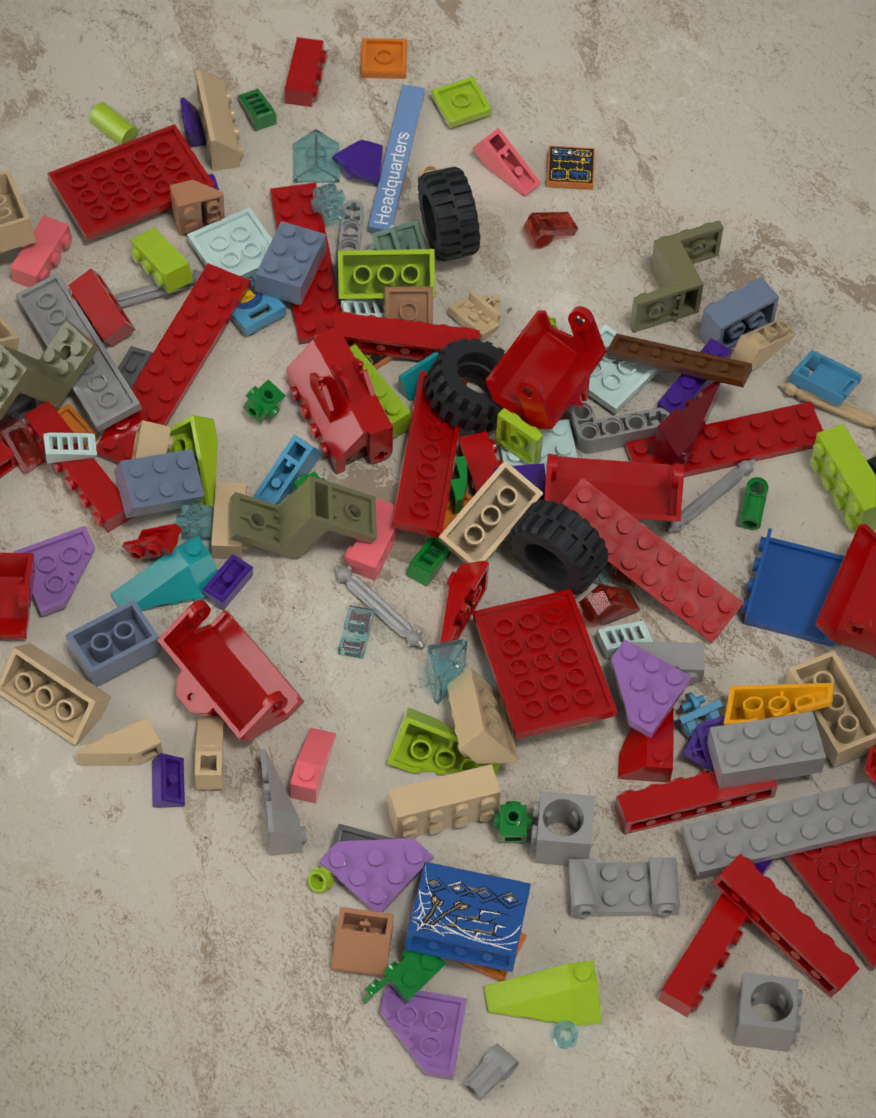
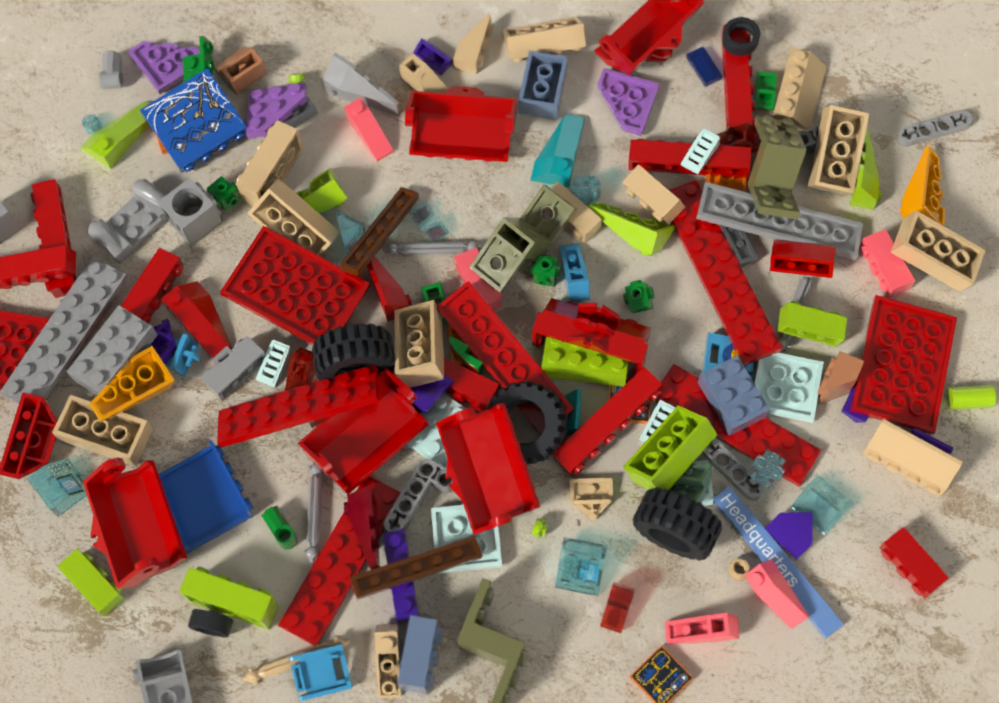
camera: 140 degrees right, 10 degrees up
(154, 542) = (589, 153): red bracket -> none
(158, 483) = (624, 177): sand blue brick -> none
(228, 581) = (528, 177): dark purple slope -> none
(258, 121) = (910, 497): green slope -> none
(384, 58) = (884, 637): orange tile -> none
(409, 303) = (630, 444): medium nougat tile -> none
(412, 643) = (379, 231): none -> reddish brown plate
(424, 139) = (776, 593): none -> coral slope
(461, 102) = (790, 651): lime plate -> none
(519, 437) = (448, 407): lime plate -> none
(543, 274) = (581, 566): none -> clear light blue slope
(646, 686) = (222, 331): medium lavender plate -> none

